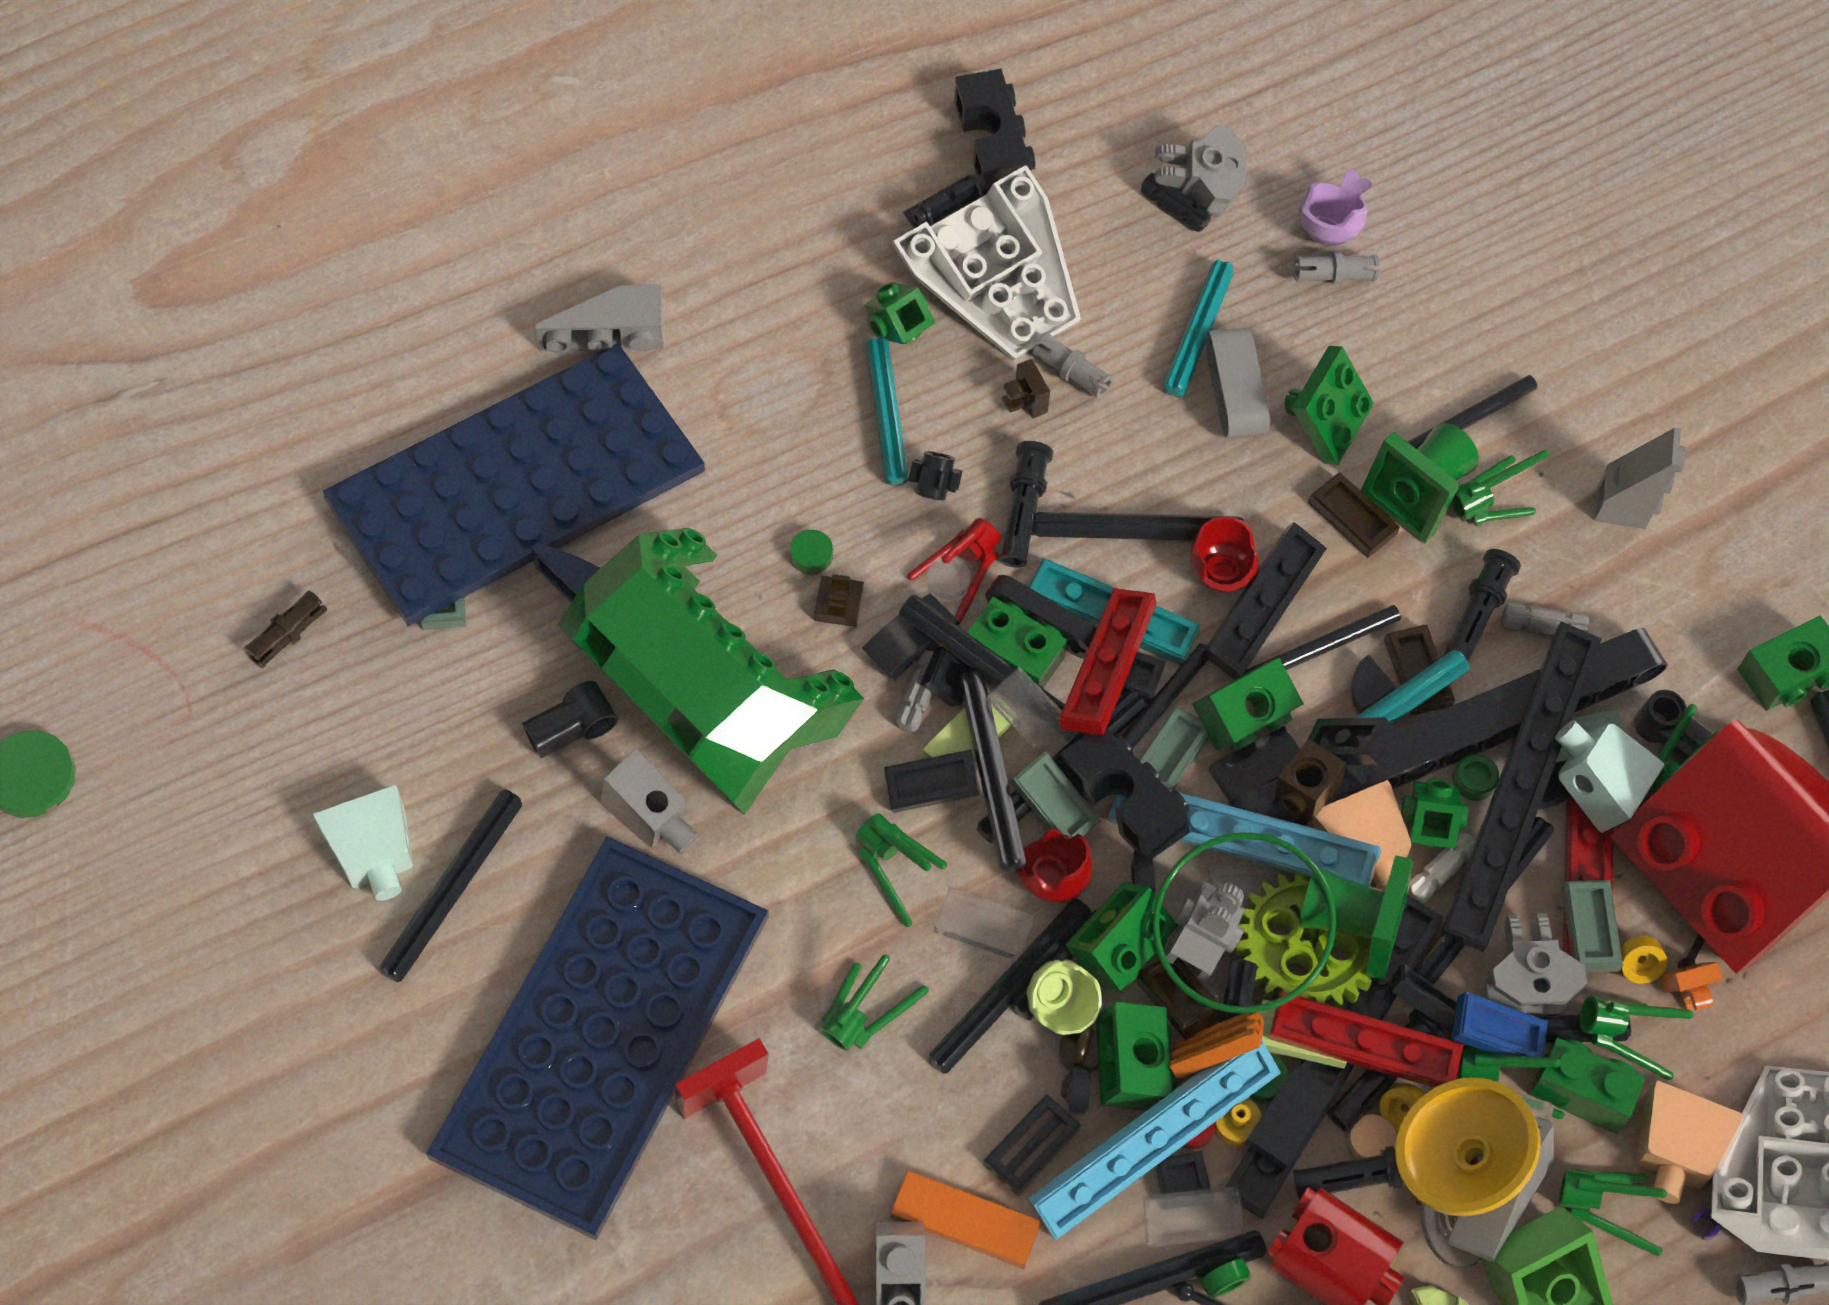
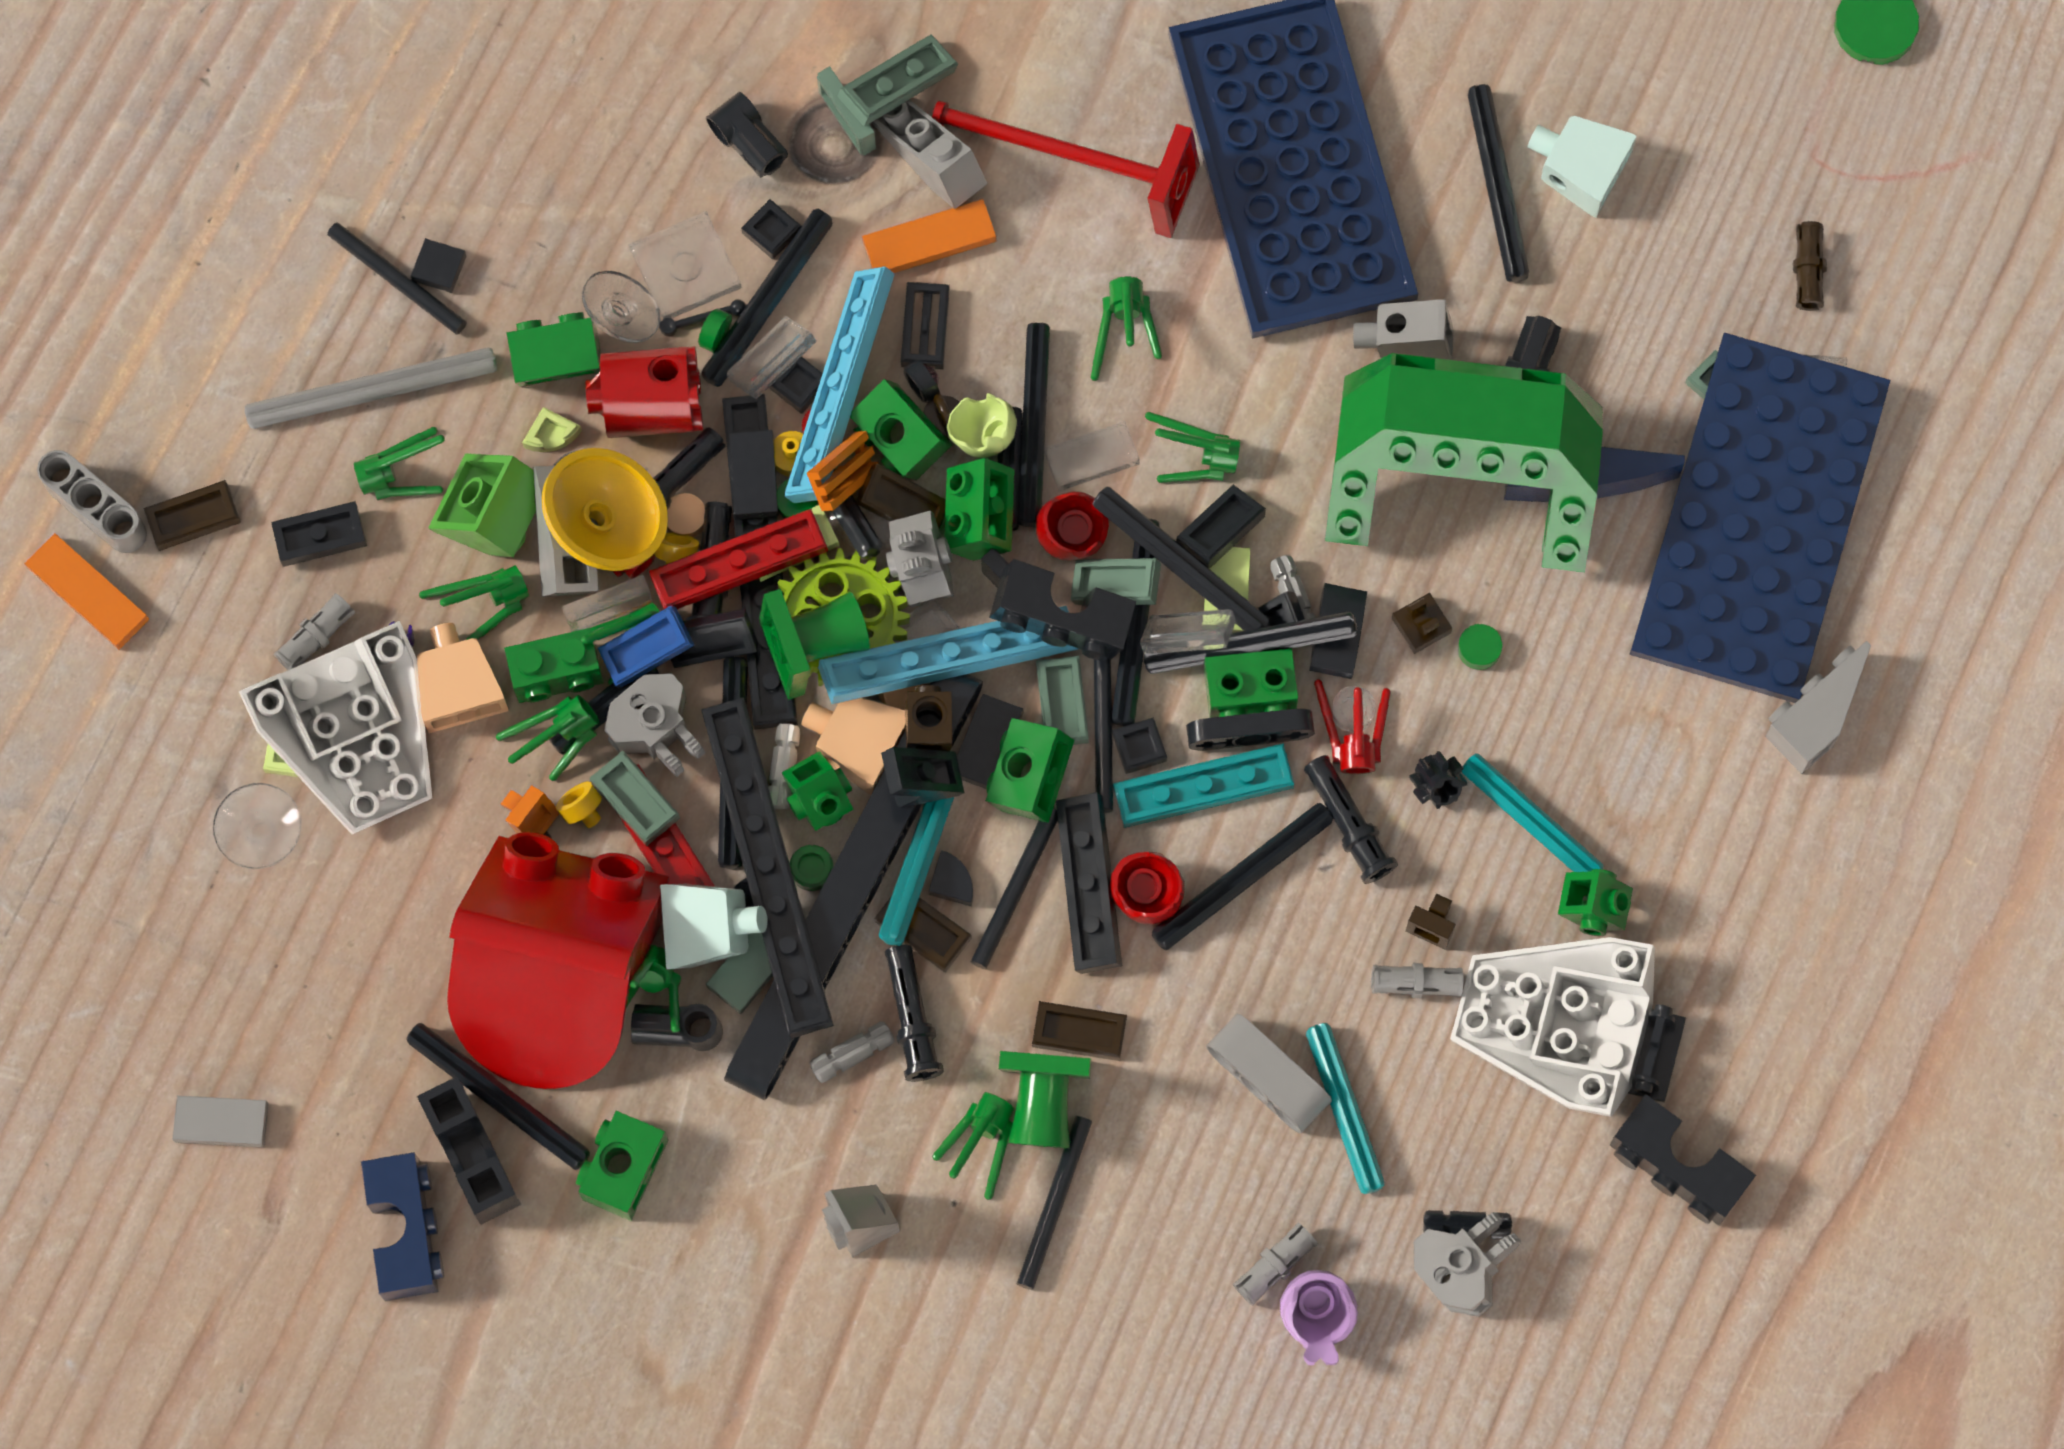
camera: 145 degrees right, 10 degrees up
(1108, 661) = (1163, 713): red tile -> none
(1262, 1007) = (891, 626): green piece -> none
(1331, 405) = (1169, 1098): green plate -> none

